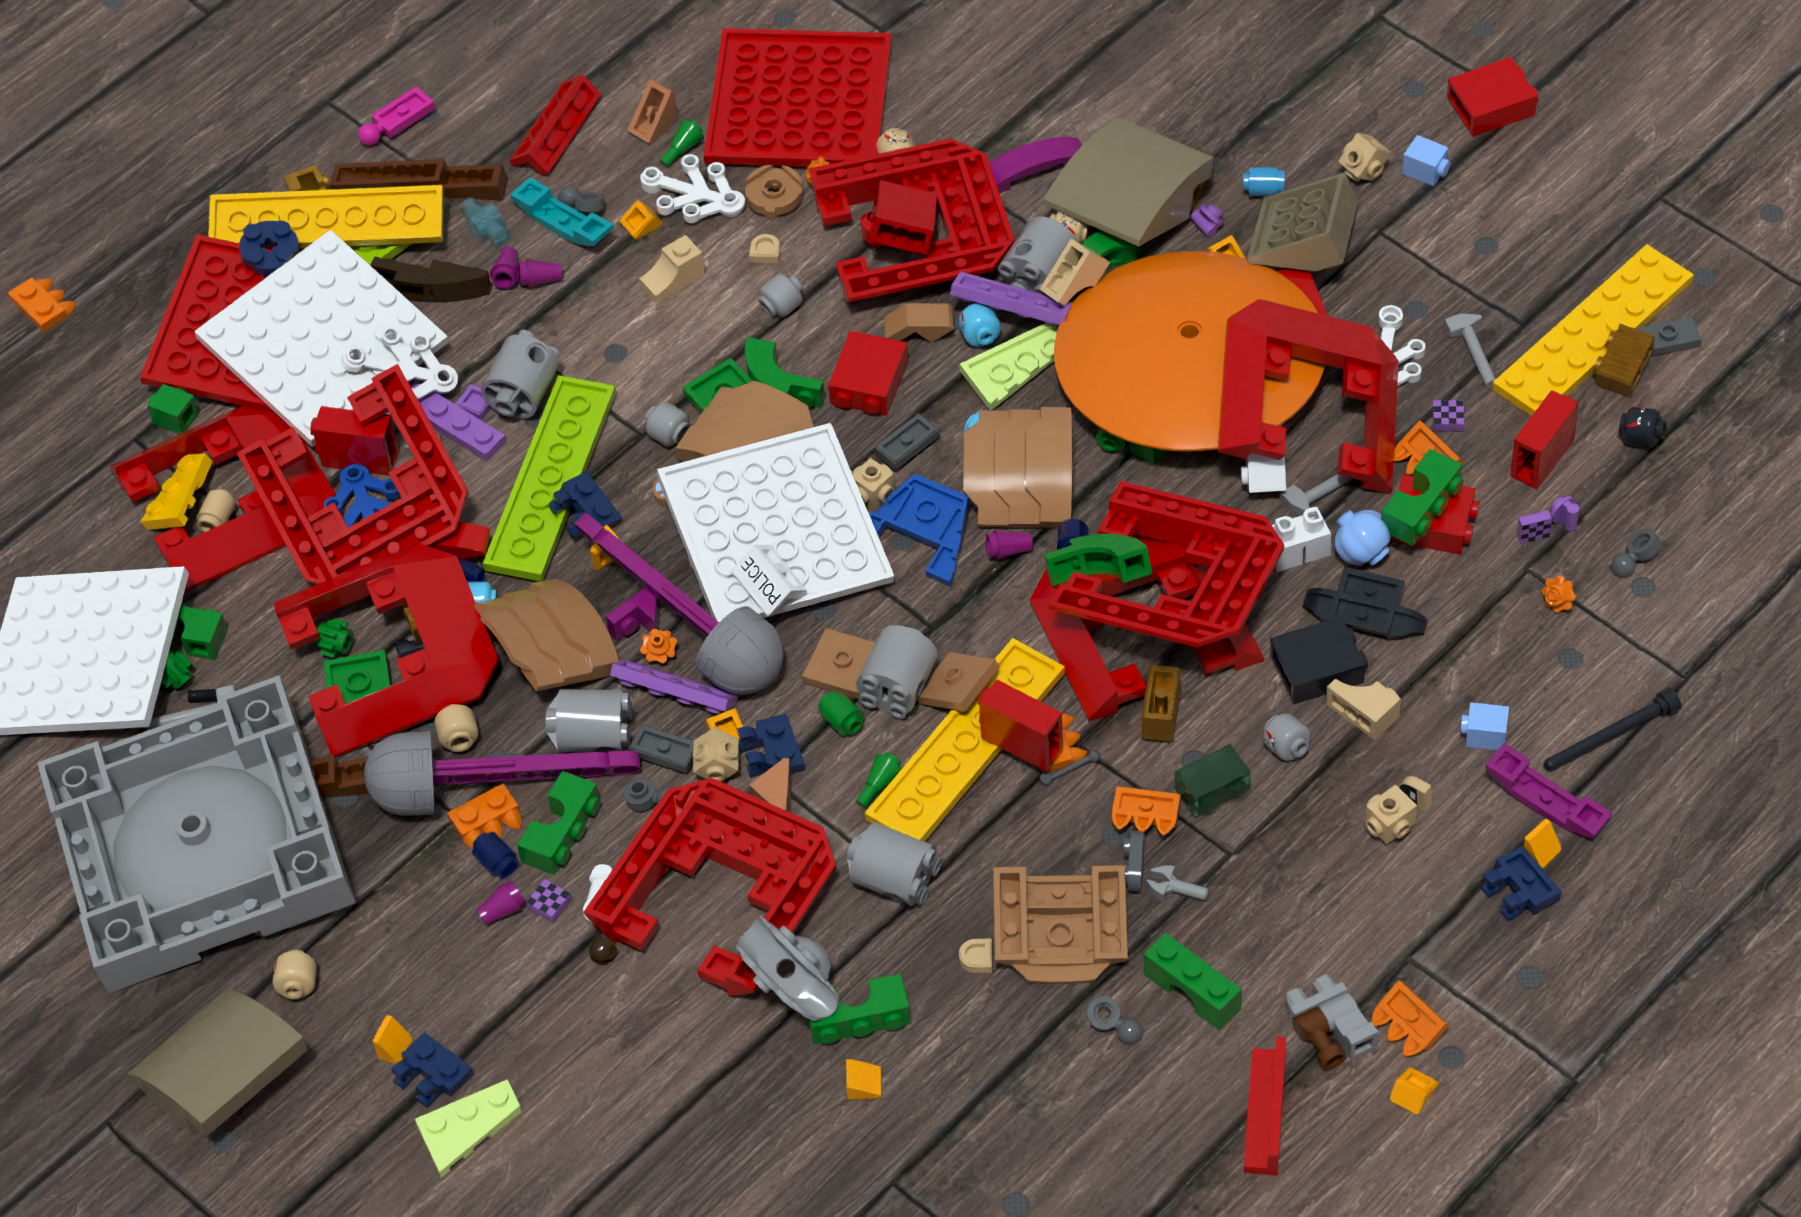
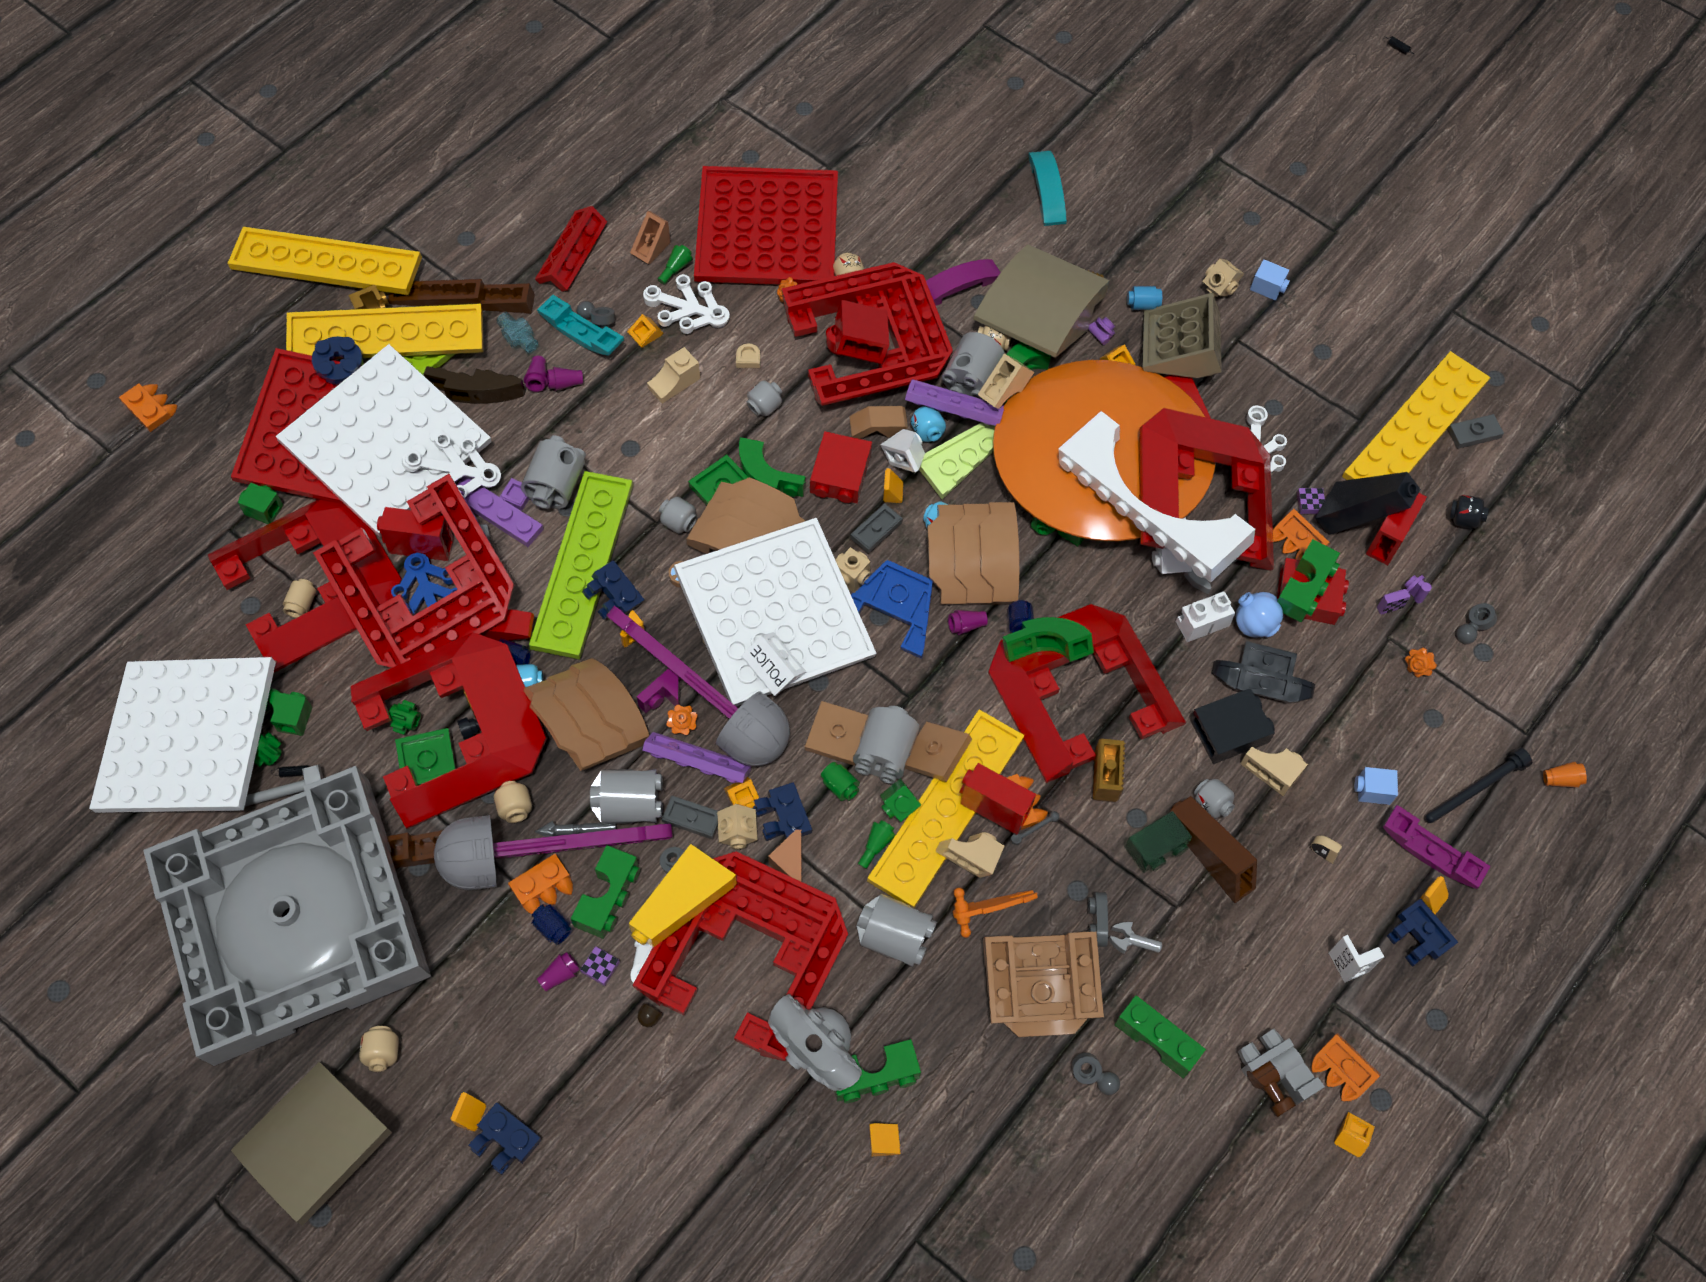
camera: 10 degrees left, 10 degrees up
(177, 493) = (265, 581): yellow wing -> none
(255, 138) = (325, 260): none -> yellow plate
(396, 116) = (443, 239): dark pink plate -> none
(460, 1126) = (535, 1194): yellowish green wing -> none
(644, 817) = (680, 896): none -> yellow slope
(777, 203) = (752, 317): medium nougat plate -> none
(907, 731) = (899, 801): none -> green brick
(930, 396) = (892, 487): none -> light orange slope
(946, 353) = (904, 450): none -> white slope
(974, 850) = (964, 910): none -> orange piece
(976, 956) = (972, 1011): tan tile -> none
(989, 789) = (976, 855): none -> tan arch
(1145, 809) = (1104, 869): orange plate -> none
(1156, 53) = (1049, 187): none -> teal slope
(1232, 542) = (1156, 623): red slope -> none
(1265, 1109) = (1233, 1160): red fence -> none
(1283, 445) = (1201, 544): none -> white arch
(1283, 791) = (1218, 850): none -> reddish brown slope
(1390, 814) = (1309, 872): tan brick -> none
(1433, 907) = (1350, 963): none -> white panel
(1464, 326) = (1314, 421): light grey piece -> none
(1492, 96) = (1315, 225): red brick -> none
(1504, 409) = (1366, 500): none -> black slope
(1624, 360) = (1448, 453): pearl gold brick -> none
(1721, 719) = (1566, 775): none -> orange cone

